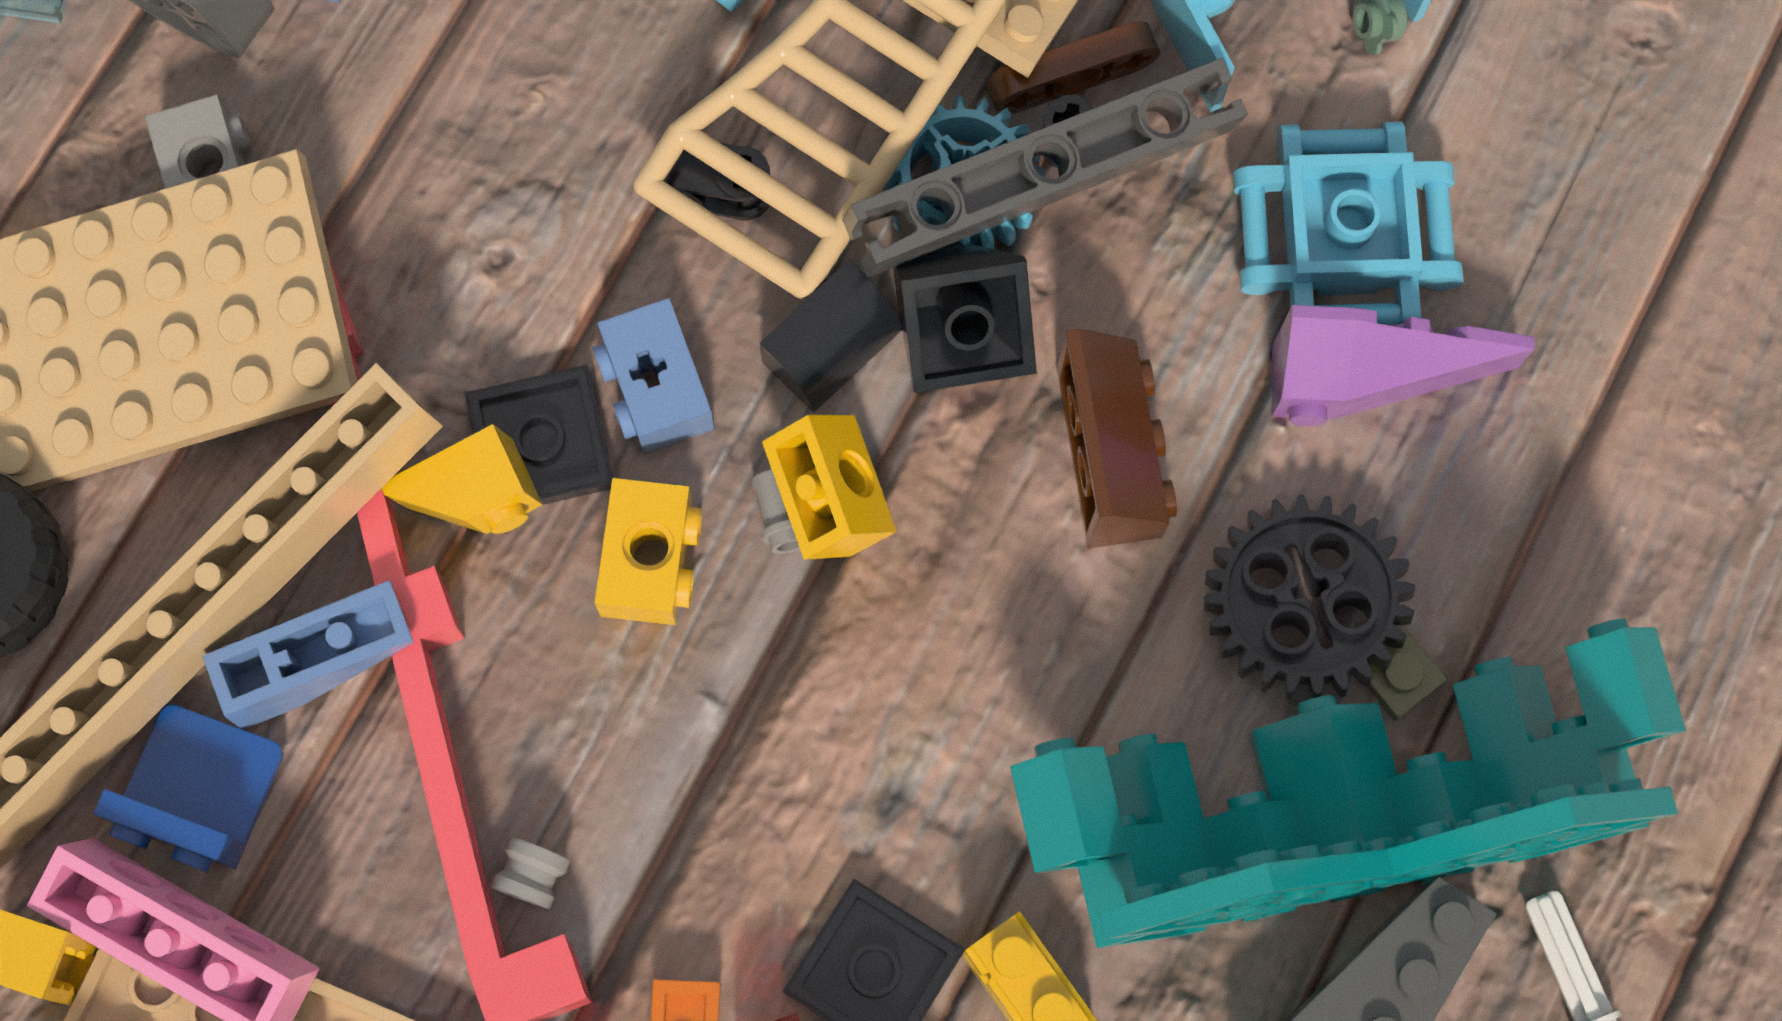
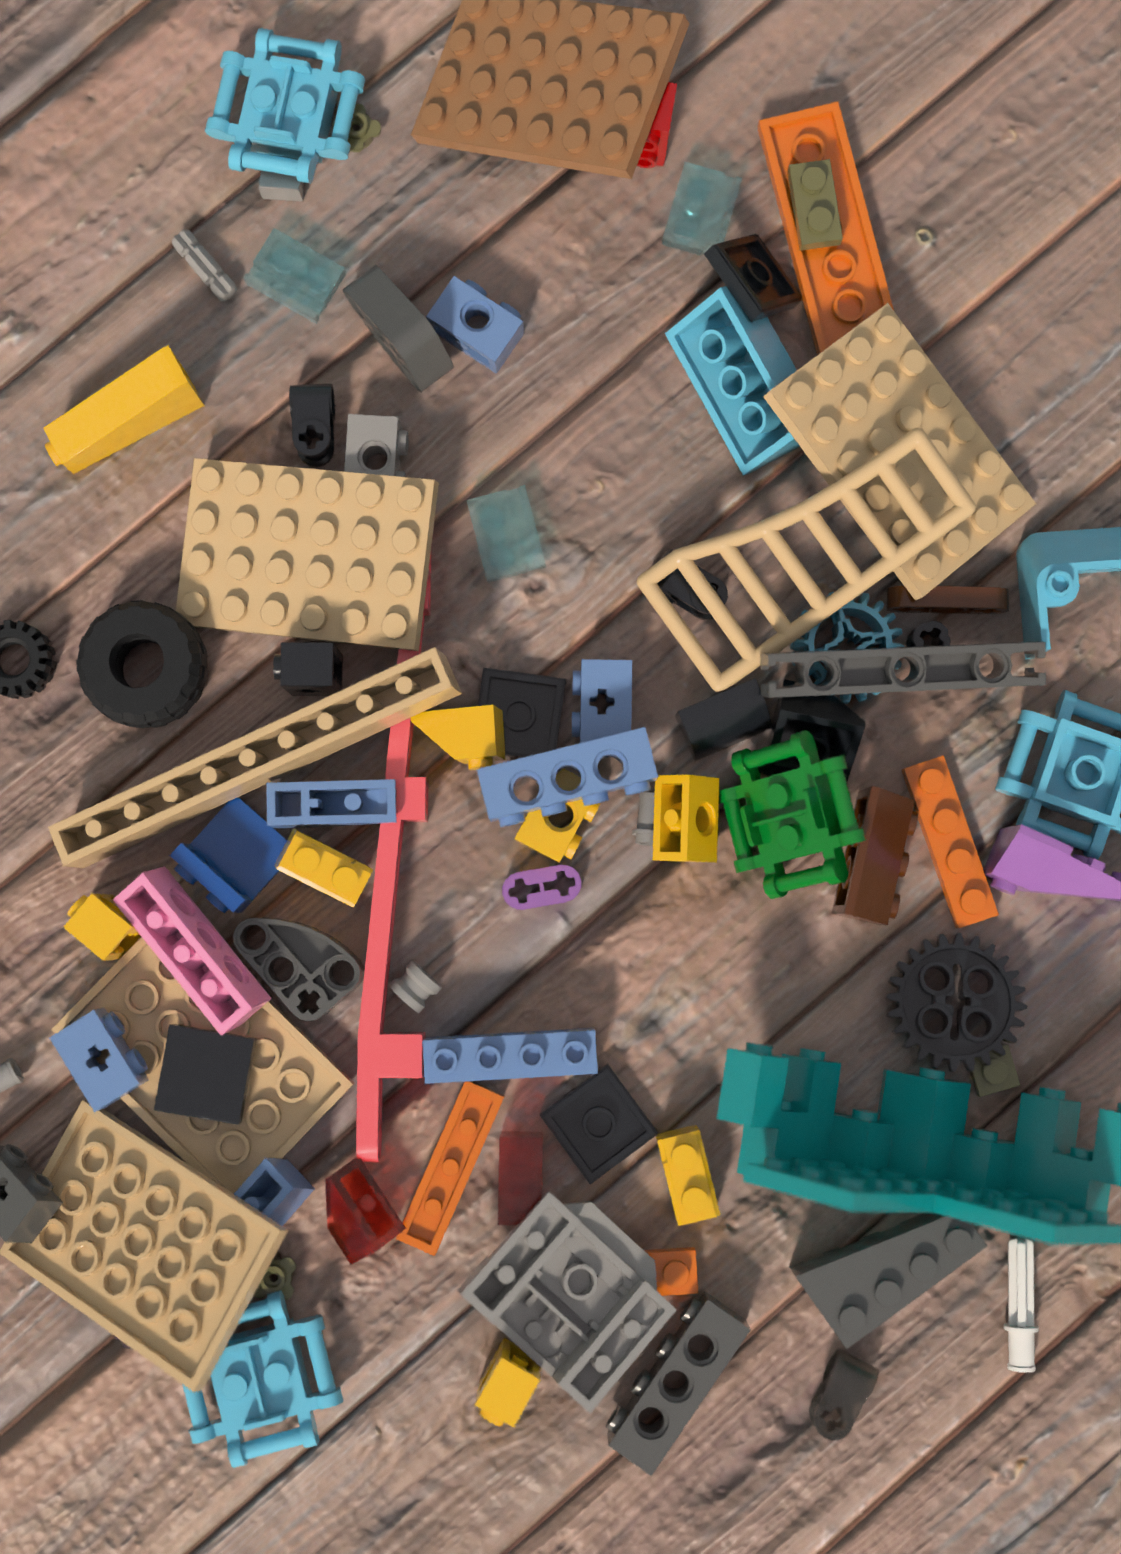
camera: 25 degrees right, 10 degrees up
(99, 148) = (313, 417): none -> black piece
(205, 472) = (309, 668): none -> black brick
(331, 751) = (323, 867): none -> yellow brick
(366, 892) = (313, 962): none -> dark grey beam
(429, 201) = (506, 533): none -> clear light blue plate
(654, 651) = (541, 876): none -> medium lavender beam
(703, 411) = (629, 748): none -> medium blue brick
(704, 917) = (510, 1055): none -> medium blue brick
(974, 421) = (791, 815): none -> green brick
(1211, 387) = (950, 842): none -> orange plate

